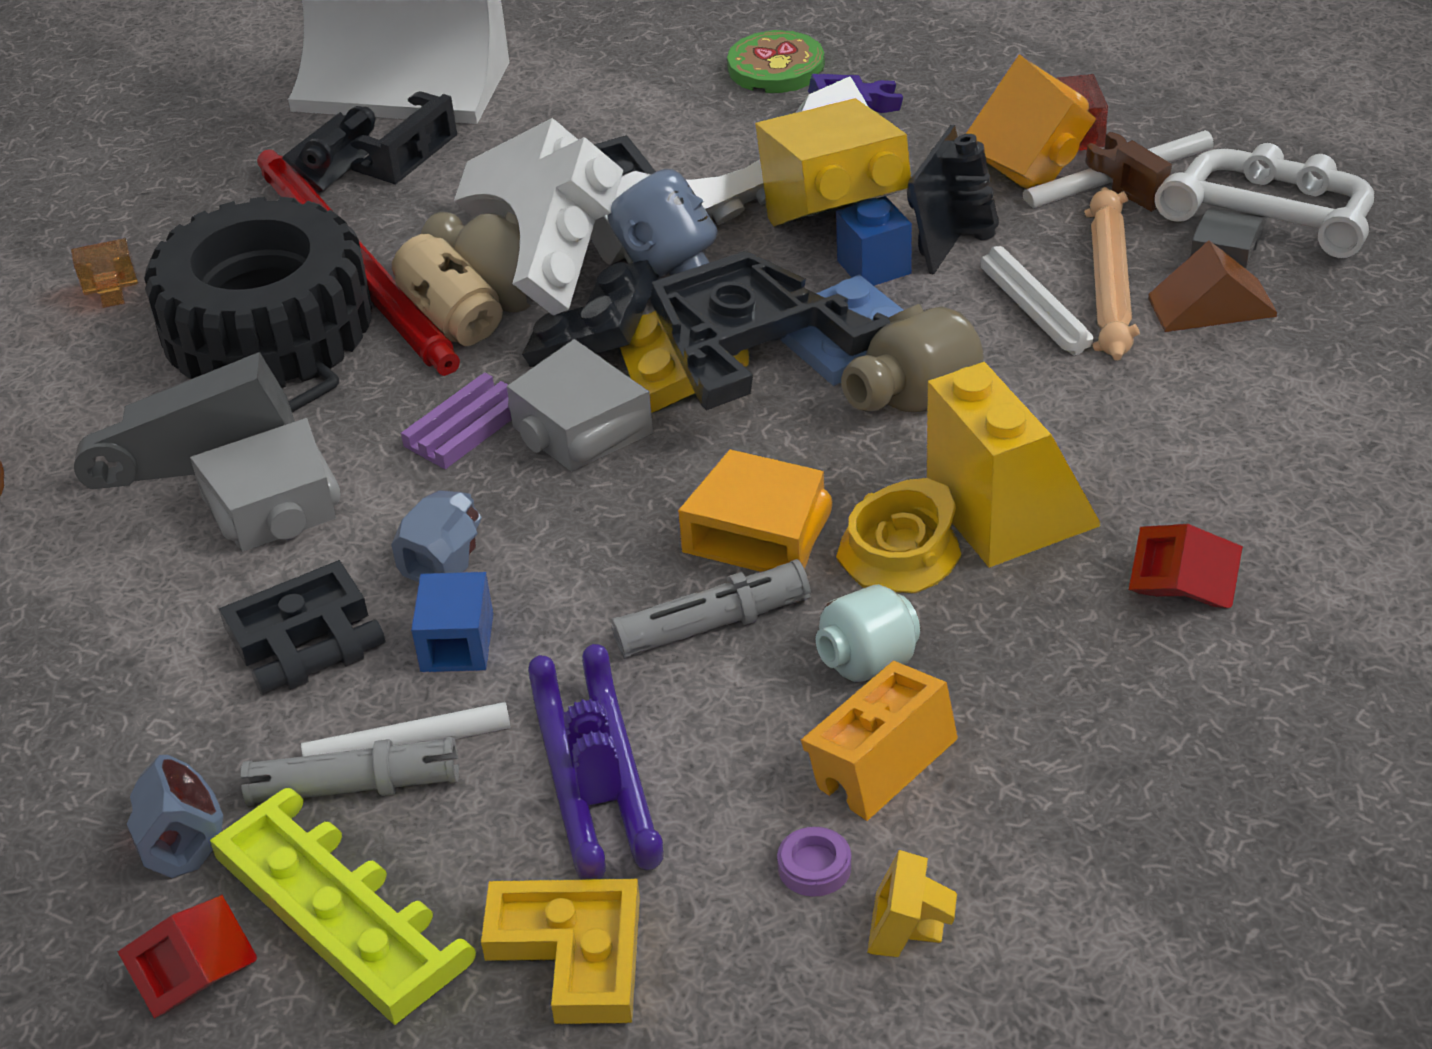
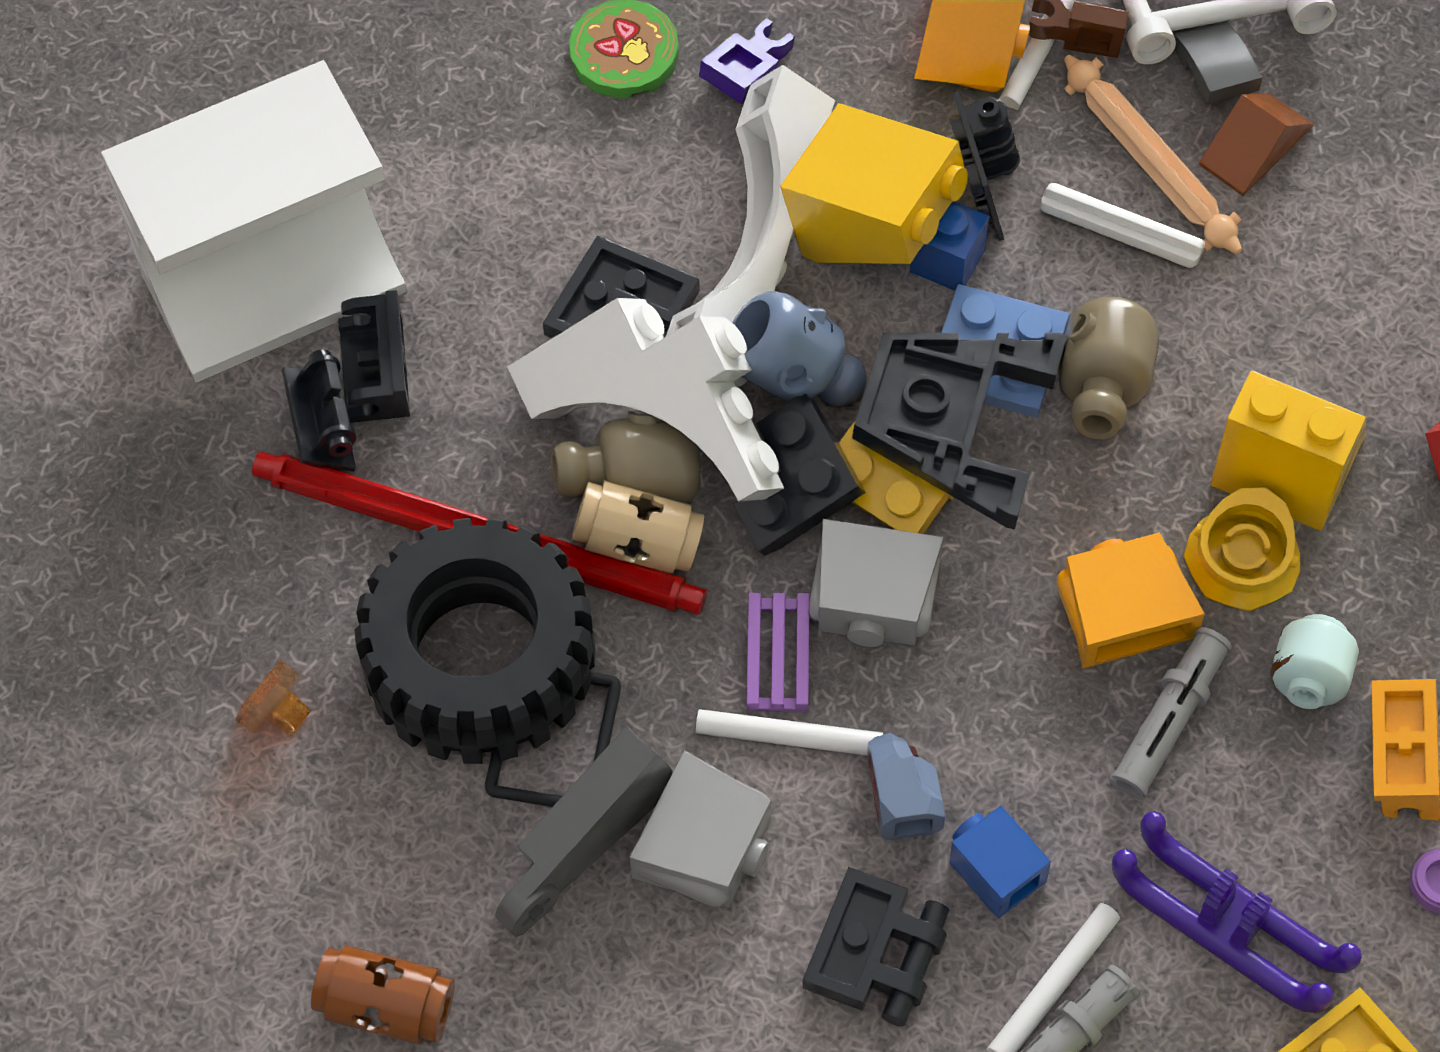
camera: 40 degrees left, 20 degrees up
(399, 460) = (784, 732): none -> white bar

